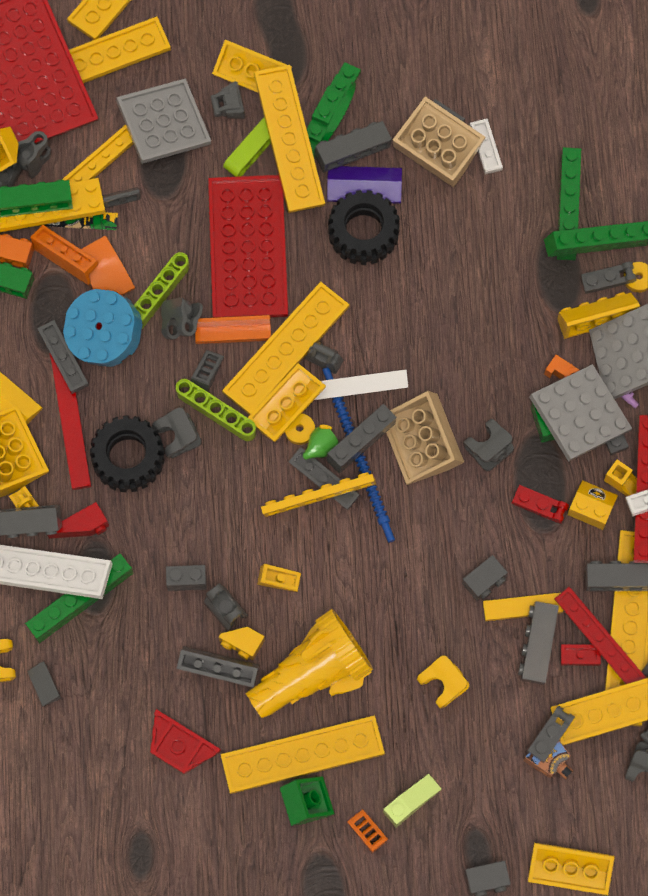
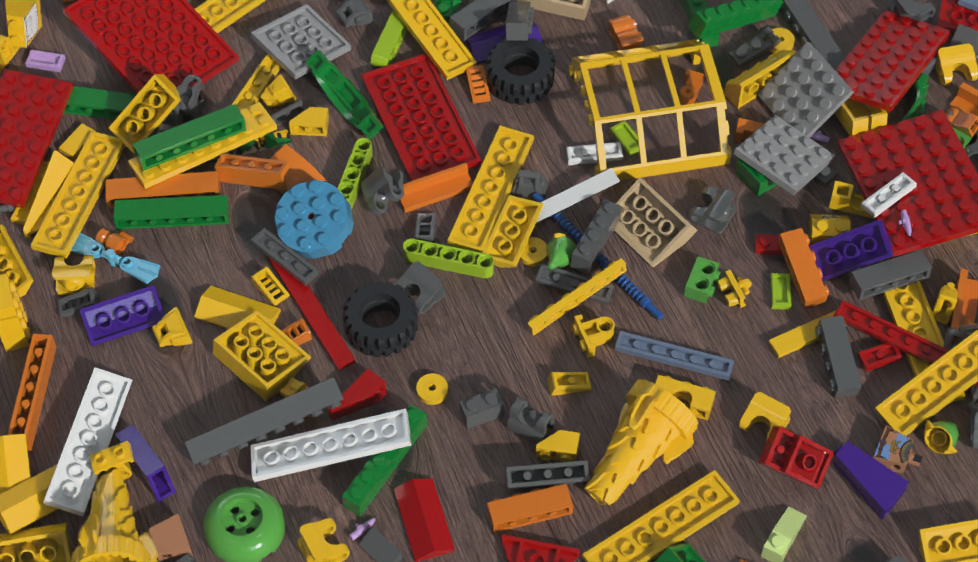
camera: 20 degrees left, 15 degrees down
(35, 656) = (361, 529): none -> lavender helmet
(40, 365) = (256, 280): none -> yellow slope
(45, 433) = (294, 328): none -> orange slope
(94, 667) = (423, 519): none -> red slope
(120, 173) = (278, 93): none -> yellow piece
(142, 215) = (310, 122): none -> yellow slope
(146, 532) = (432, 381): none -> yellow piece
(183, 198) = (344, 95): none -> green piece
(191, 692) = (529, 507): none -> orange brick
(316, 212) = (473, 74): none -> orange slope
(318, 537) = (591, 333): none -> yellow pin
(365, 619) = (699, 398): none -> yellow arch
(381, 173) = (519, 20): none -> dark grey brick
(387, 585) = (674, 355): none -> sand blue plate
(401, 342) = (587, 153): none -> white tile
(440, 336) = (629, 140): none -> lime tile
(442, 513) = (700, 279): none -> bright green brick
(453, 730) = (796, 457): none -> red slope
(471, 546) = (737, 288): none -> yellow hips
(485, 578) = (761, 320): dark grey brick -> none
(486, 218) = (625, 33): none -> orange brick
(515, 776) = (870, 478): none -> dark purple slope
(517, 553) = (780, 291): none -> lime tile
(527, 301) = (693, 83): none -> orange leg
(537, 320) = (698, 51): none -> yellow window
(546, 539) = (803, 268): none -> orange brick
(550, 735) = (888, 428): dark grey plate -> none
(598, 540) = (852, 250): none -> dark purple slope
(601, 757) = (941, 436): none -> yellow hat

